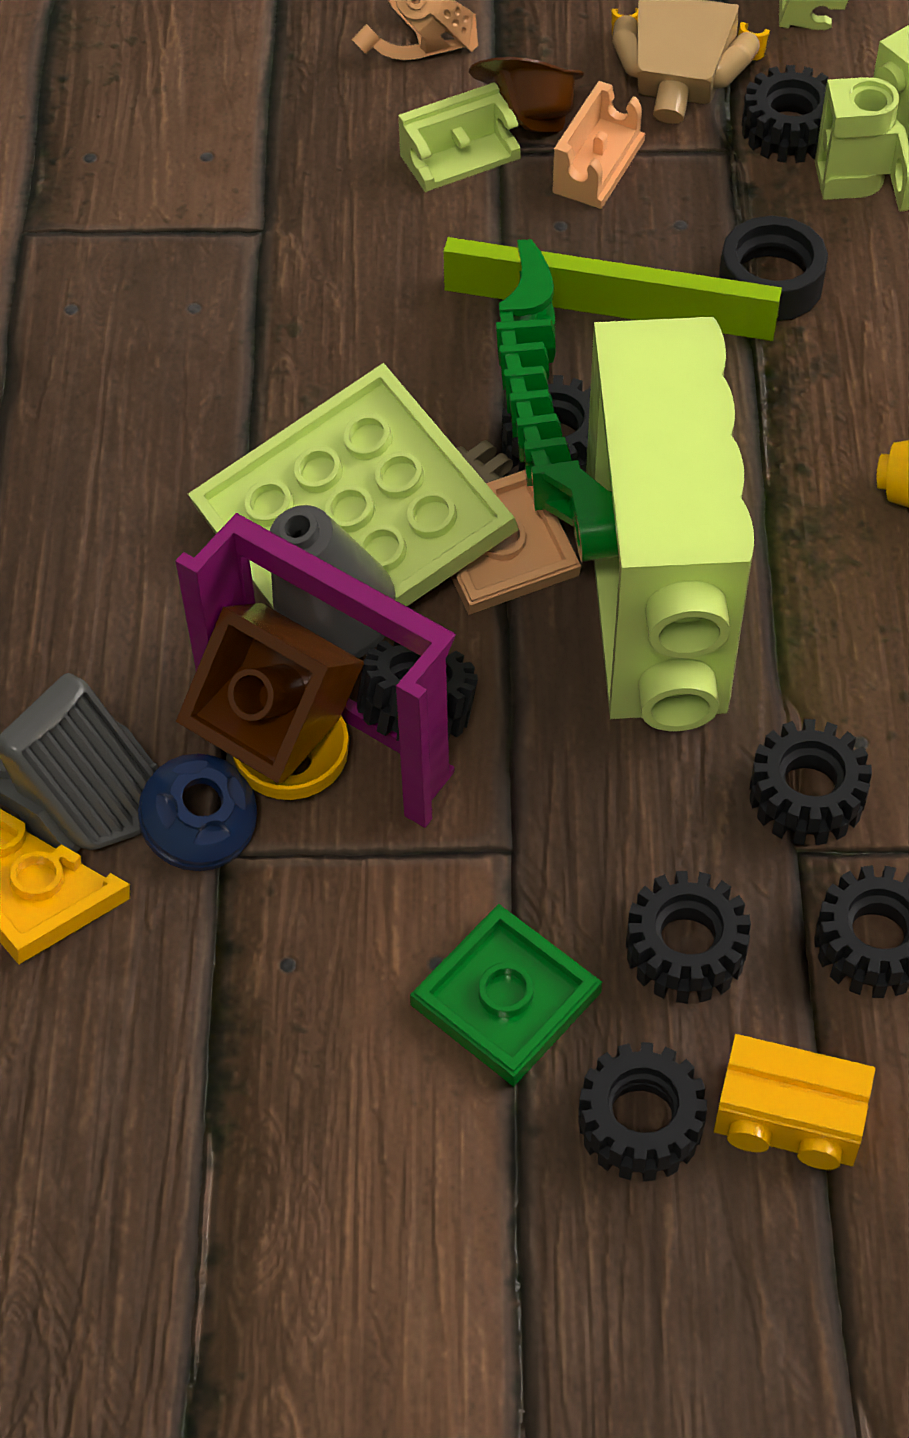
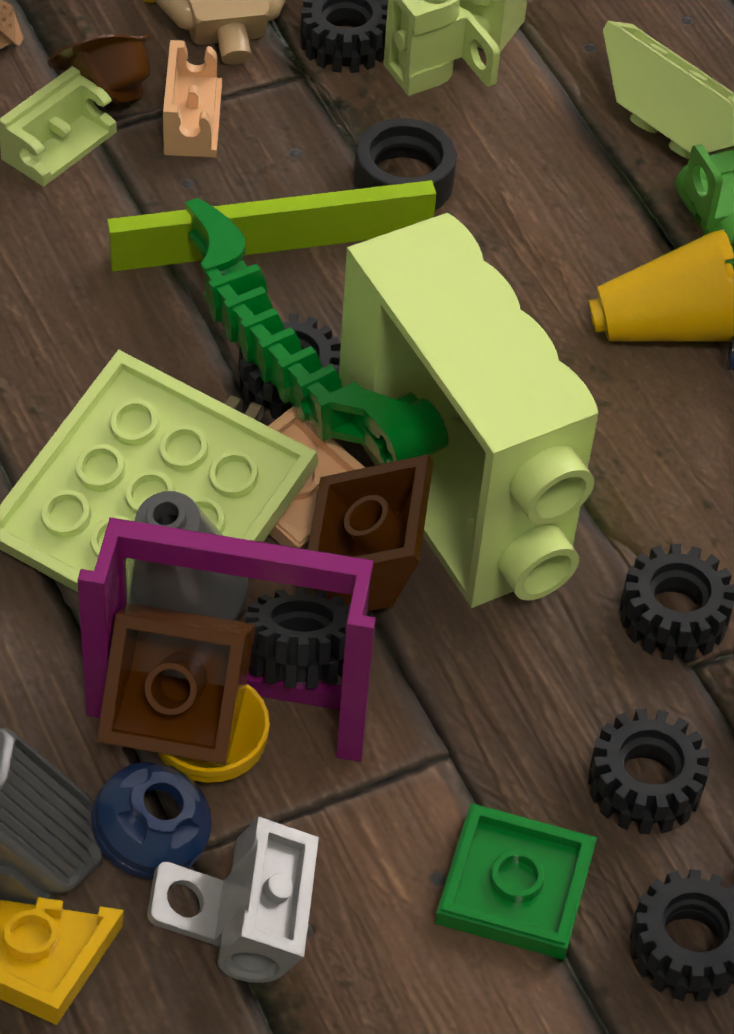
camera: 30 degrees left, 5 degrees down
(236, 929) = (257, 910): none -> light grey piece
(523, 611) = (375, 517): none -> reddish brown slope

